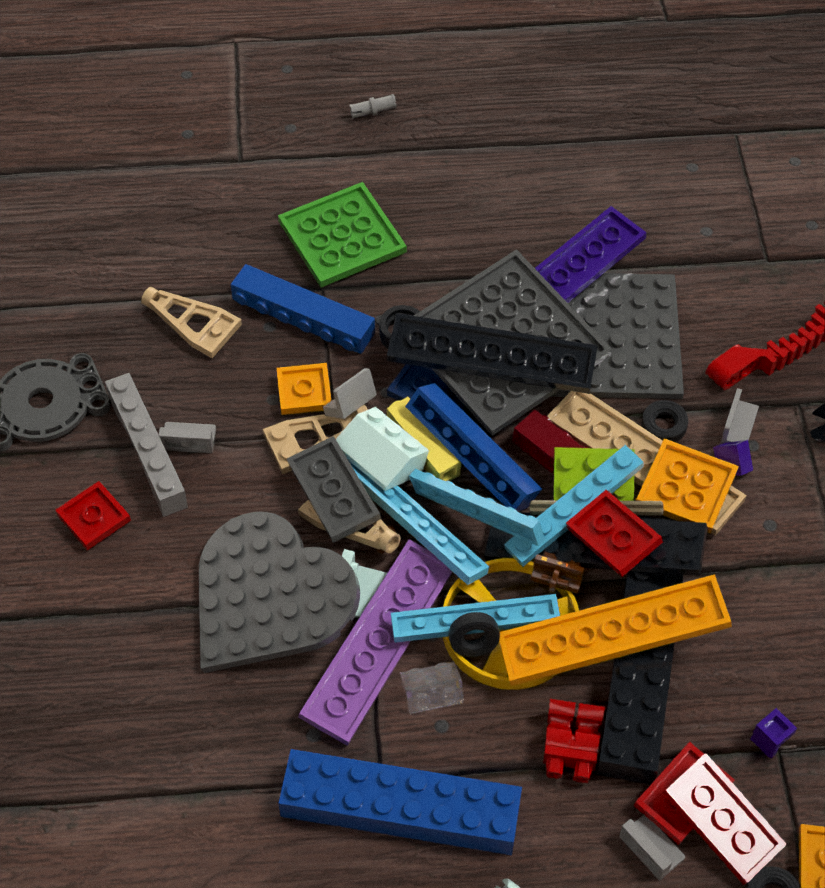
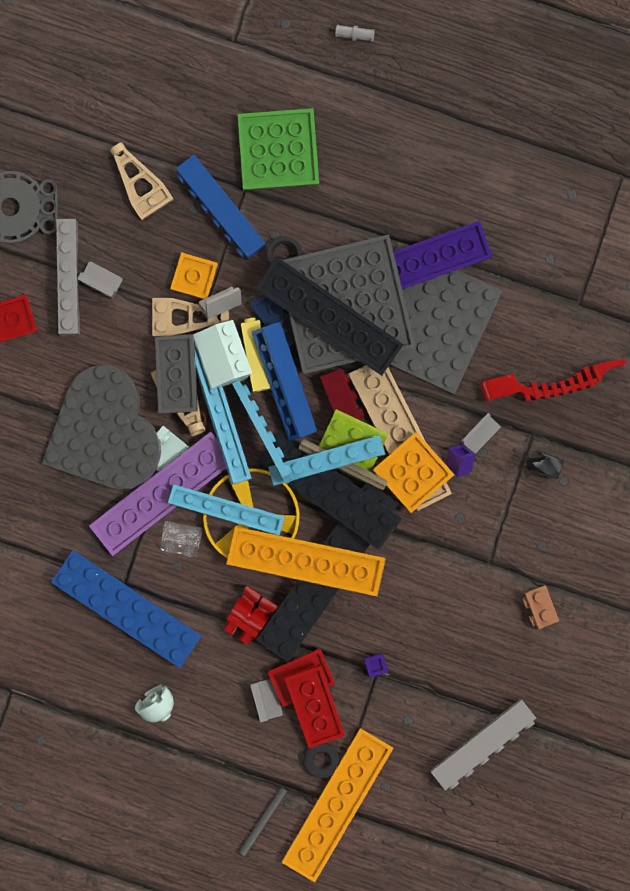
camera: 20 degrees right, 30 degrees up
(470, 622) = (218, 523): black tyre -> none
(557, 573) = (292, 503): reddish brown hips -> none
(614, 533) = (338, 496): red plate -> none
(670, 409) = (418, 410): black tyre -> none

